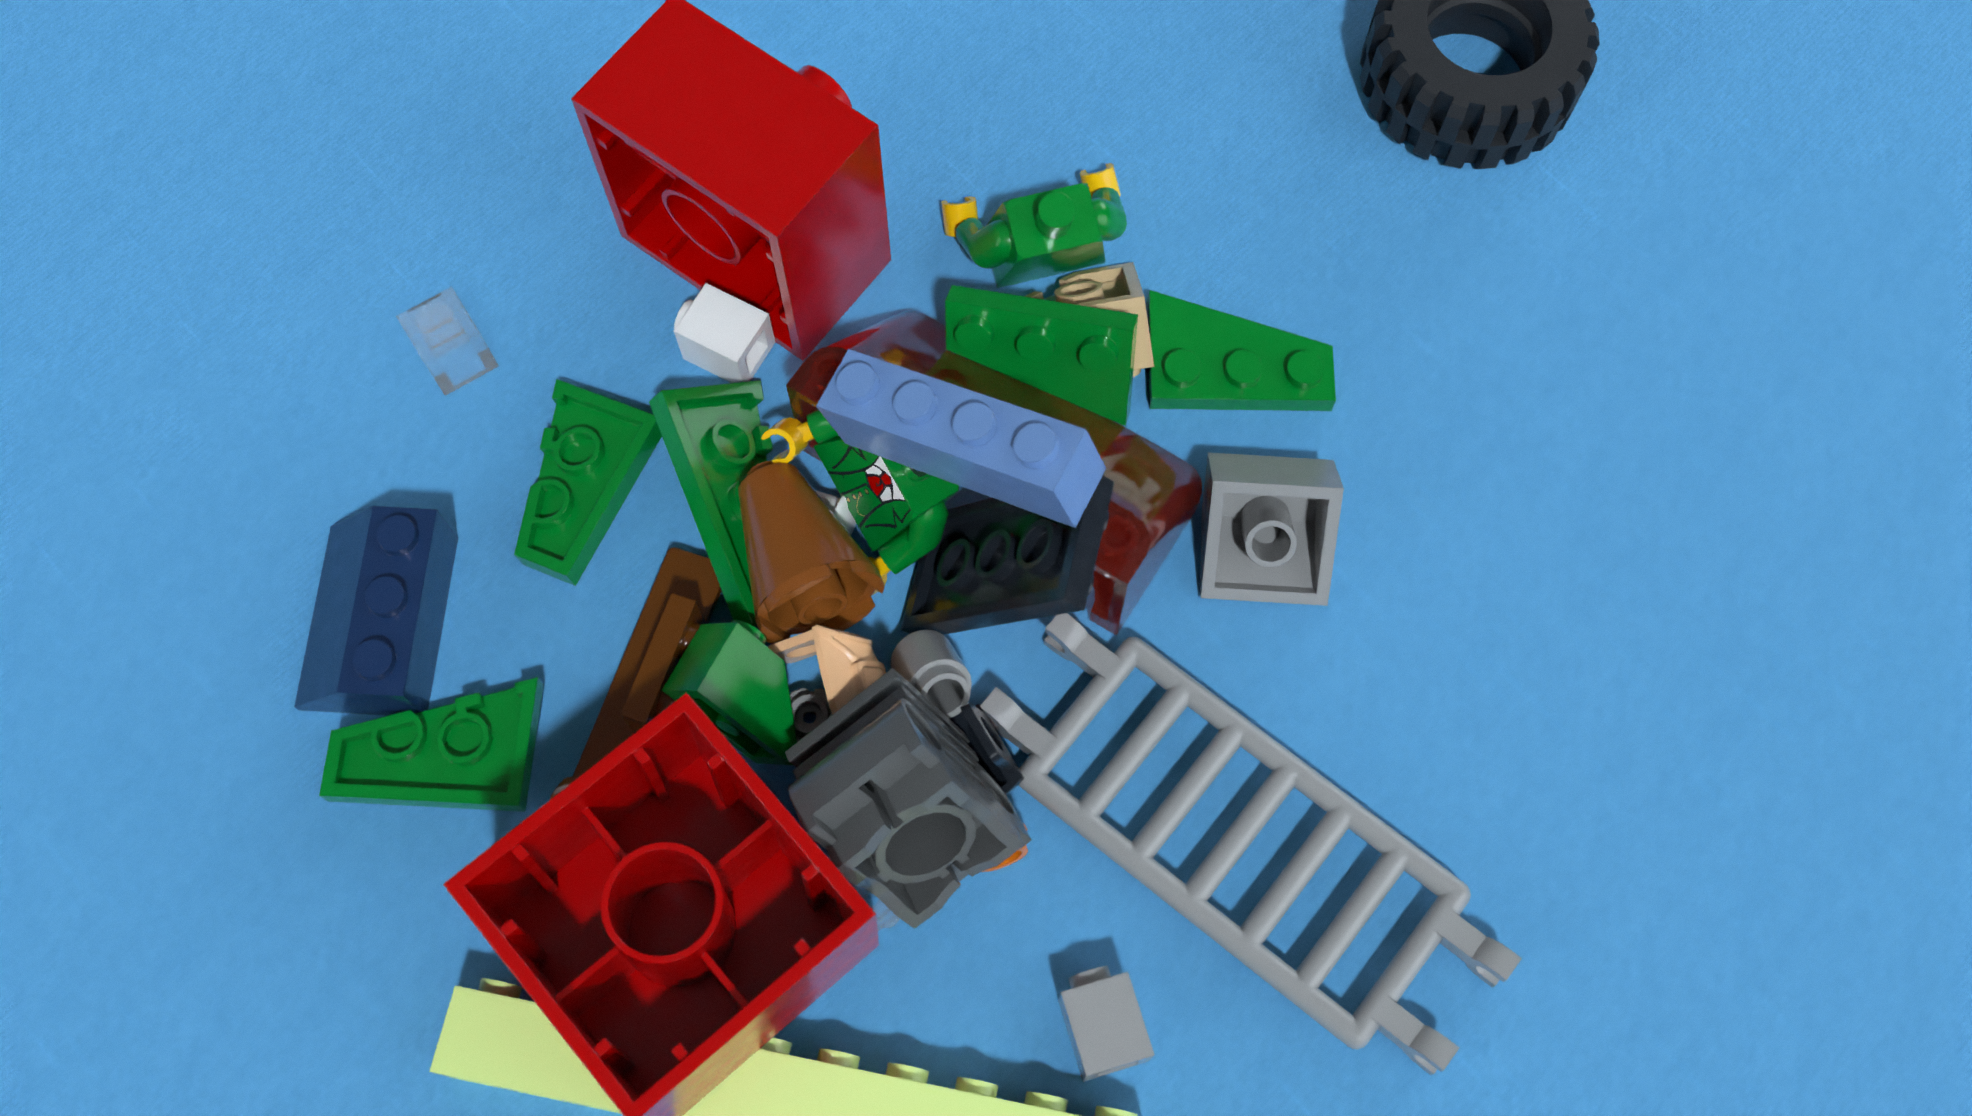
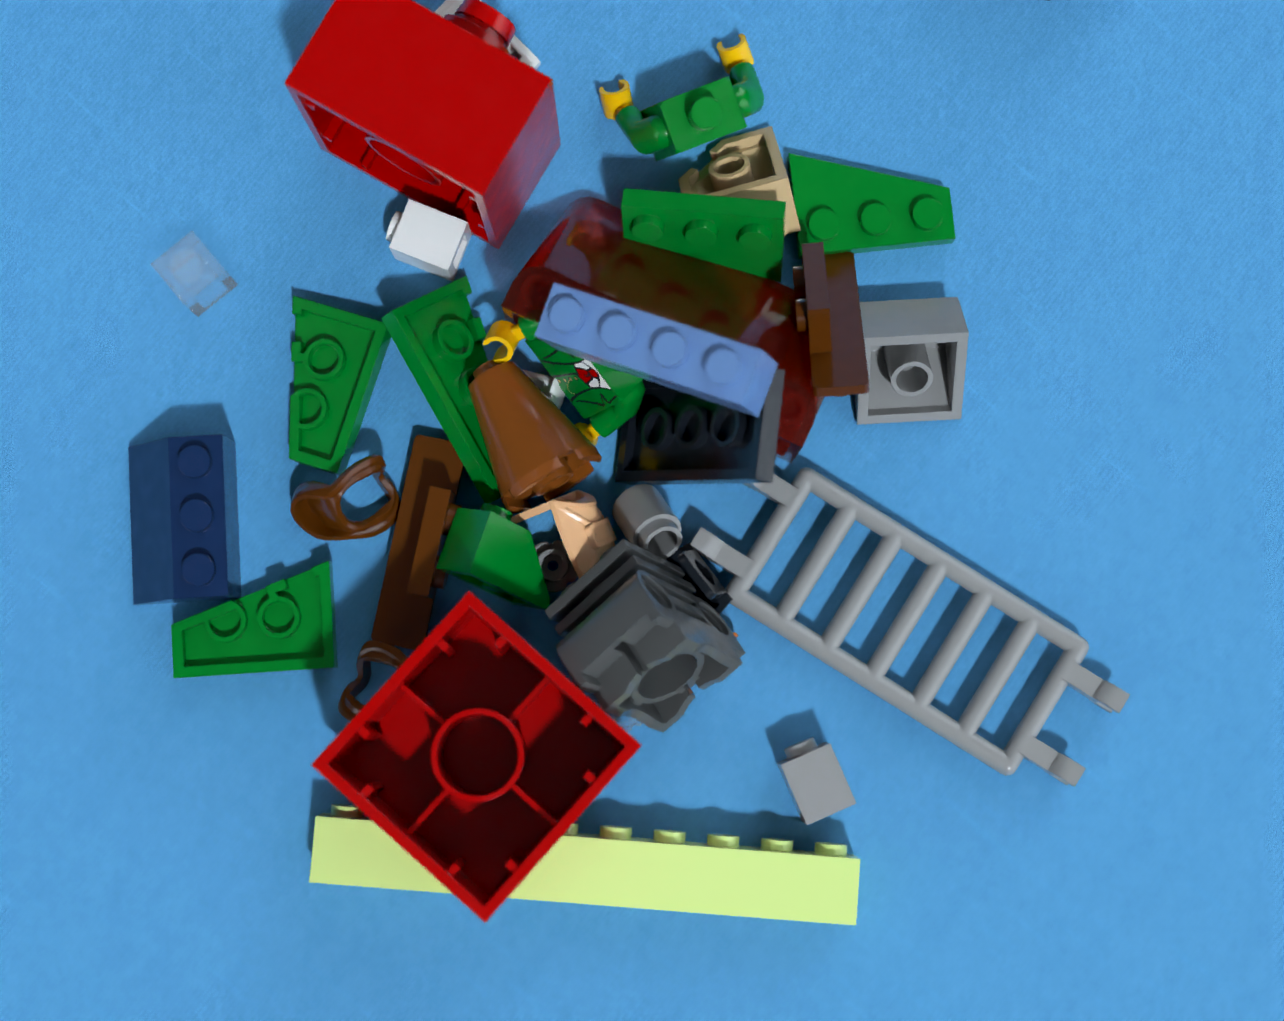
camera: 10 degrees left, 15 degrees up
(537, 620) = (319, 510): none -> reddish brown piece
(1180, 456) = (833, 321): none -> reddish brown bracket

